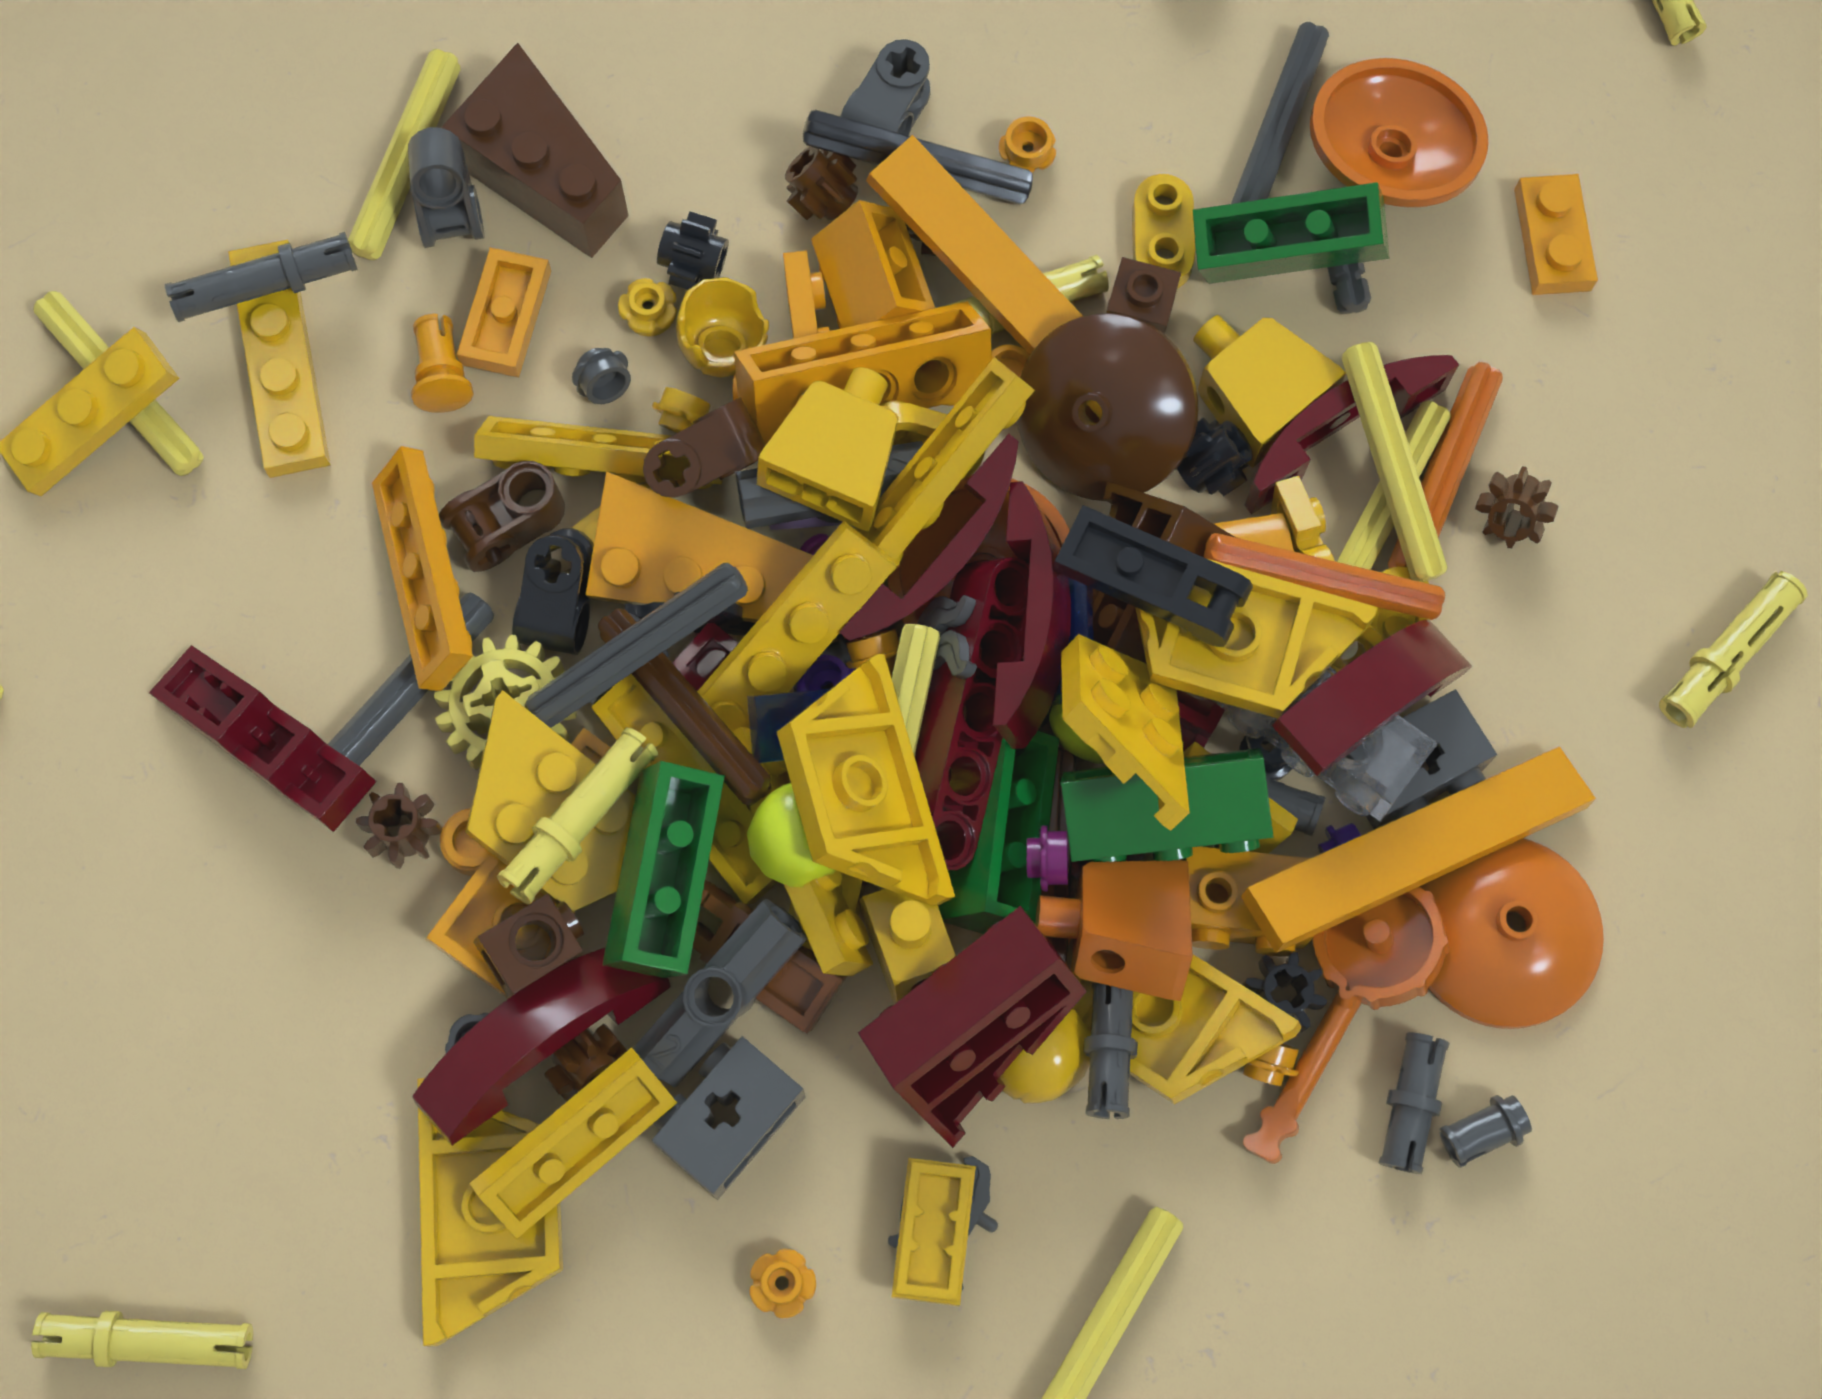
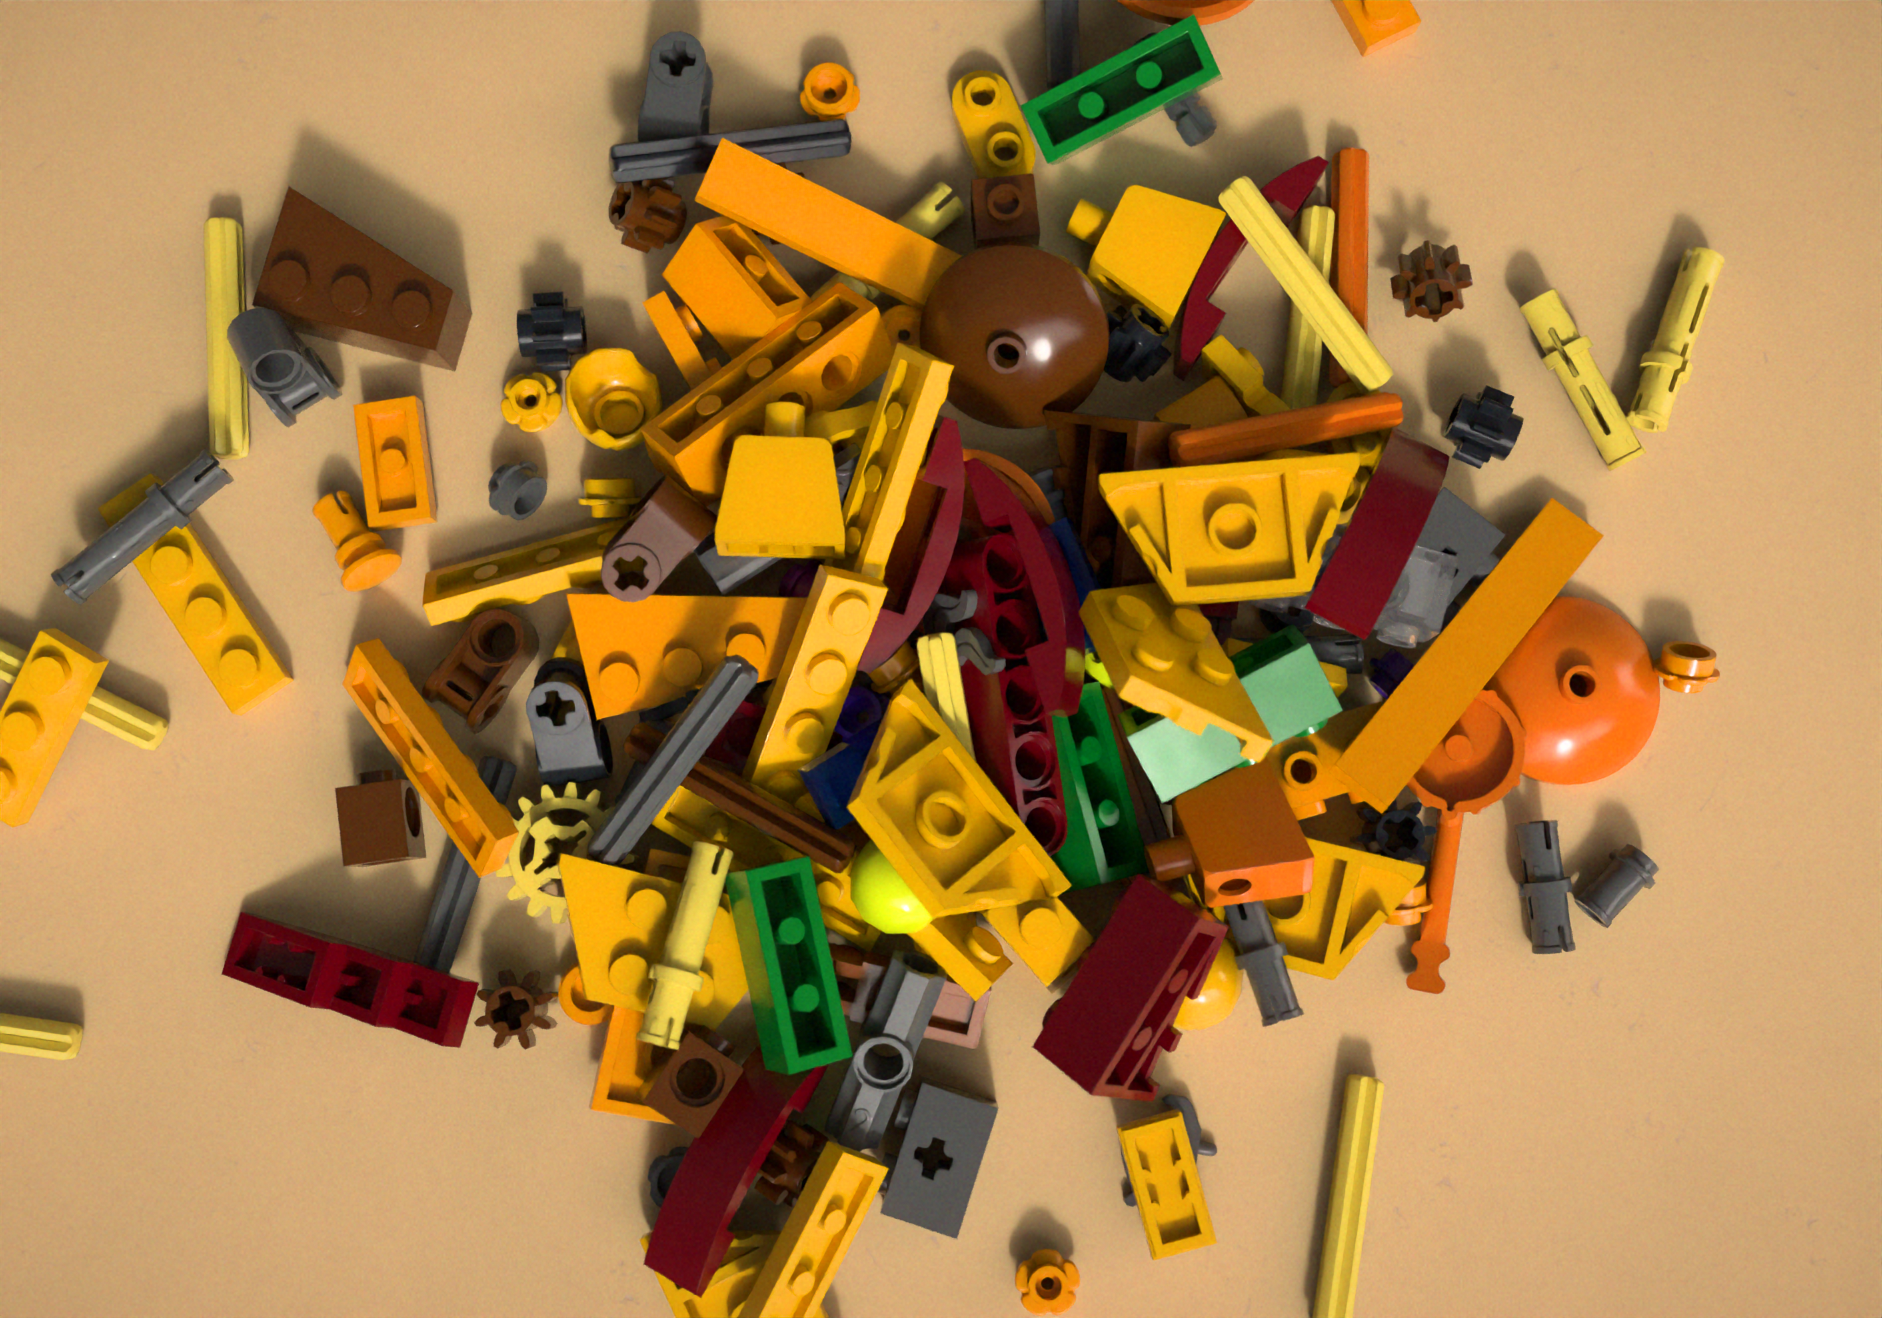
camera: 20 degrees left, 10 degrees up
(351, 611) = (380, 820): none -> reddish brown brick
(1048, 858) = (1139, 807): magenta plate -> none
(1152, 575) = (1138, 508): black plate -> none
(1516, 654) = (1483, 427): none -> black gear
(1626, 627) = (1582, 379): none -> light yellow pin
(1631, 951) = (1686, 666): none -> light orange plate

